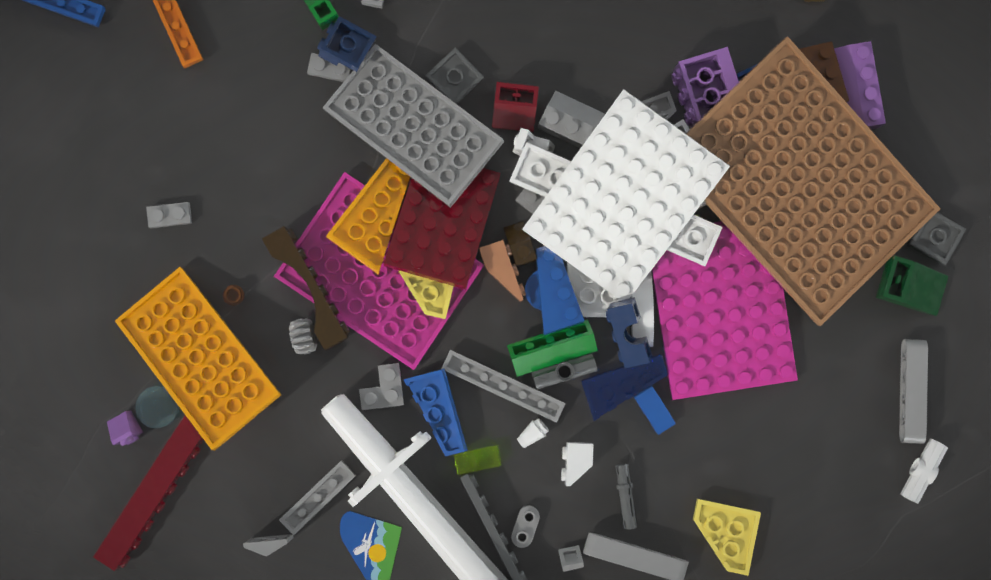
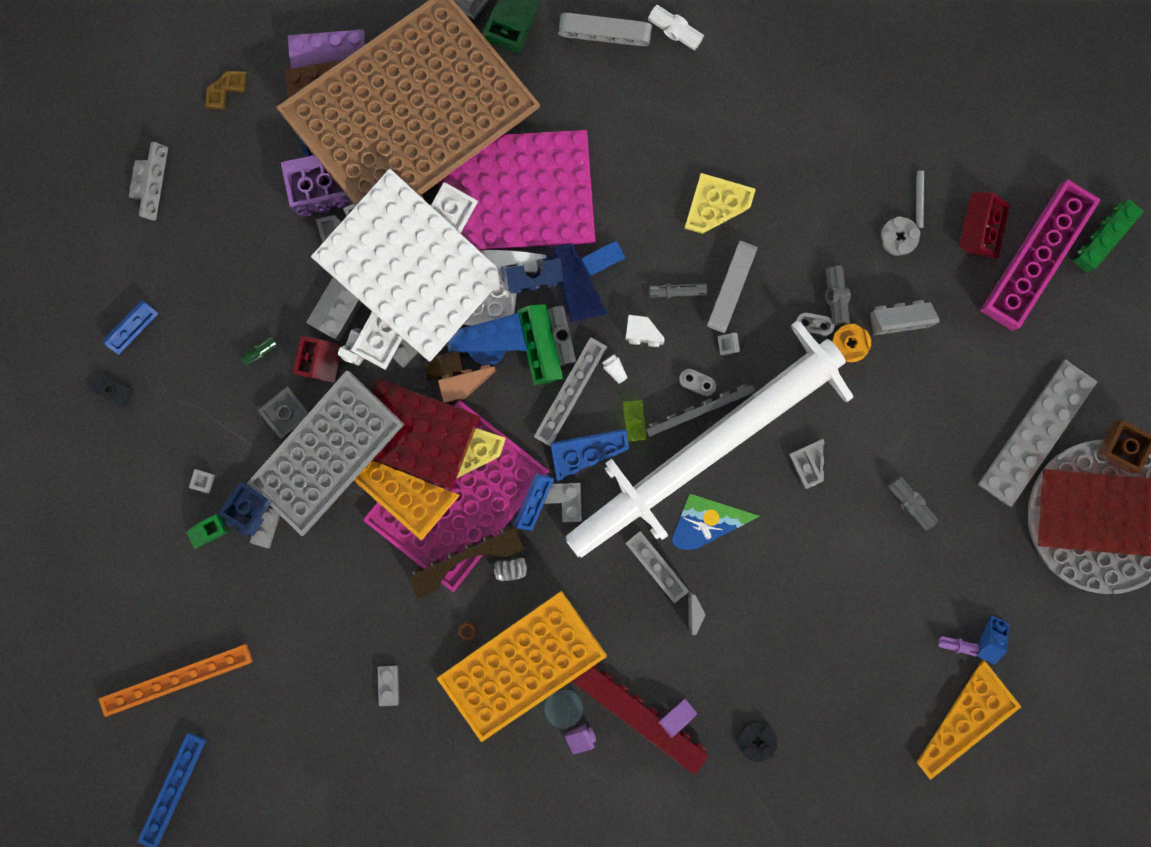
camera: 80 degrees left, 0 degrees up
(153, 533) = (677, 718): none -> medium lavender slope
(378, 355) = (533, 501): none -> blue plate
(519, 42) = (258, 351): none -> dark green axle

